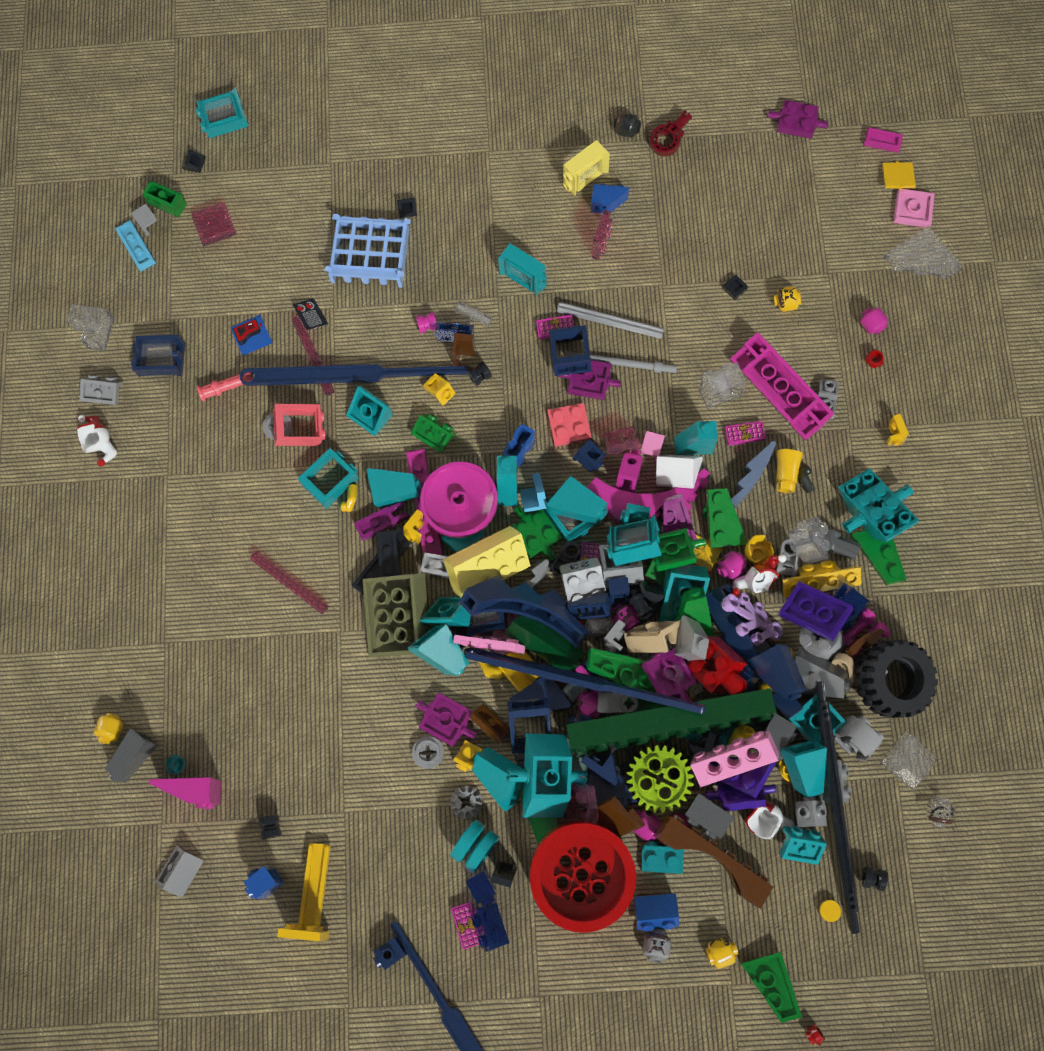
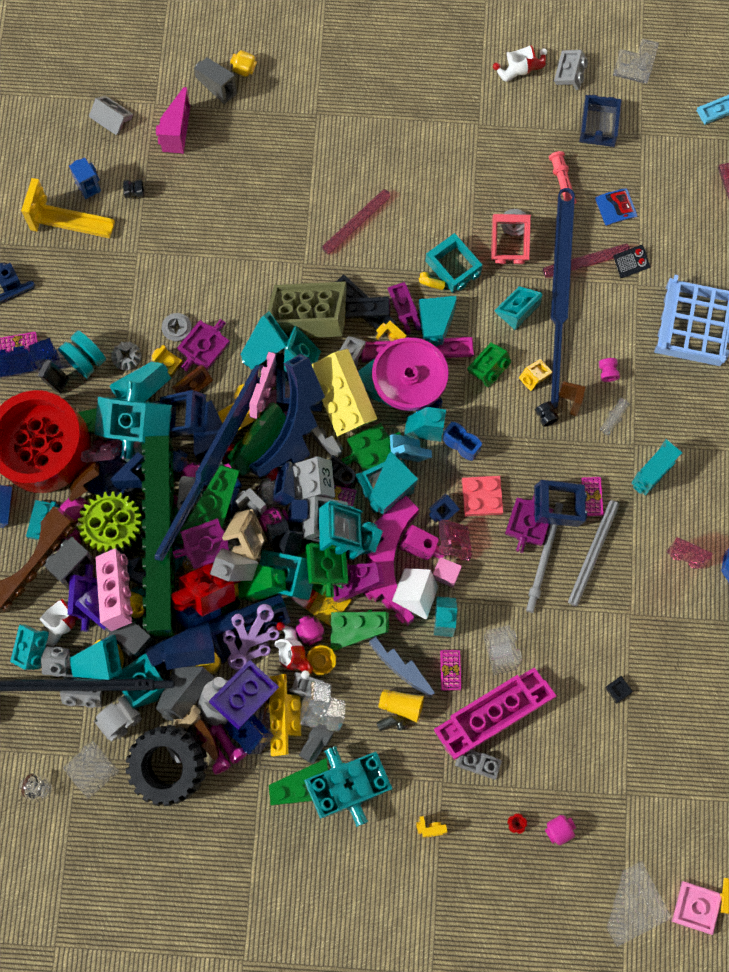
camera: 90 degrees right, 0 degrees up
(179, 764) = (199, 118): teal plate -> none
(446, 331) = (593, 393): clear blue bracket -> none
(788, 298) = (597, 741): yellow head -> none

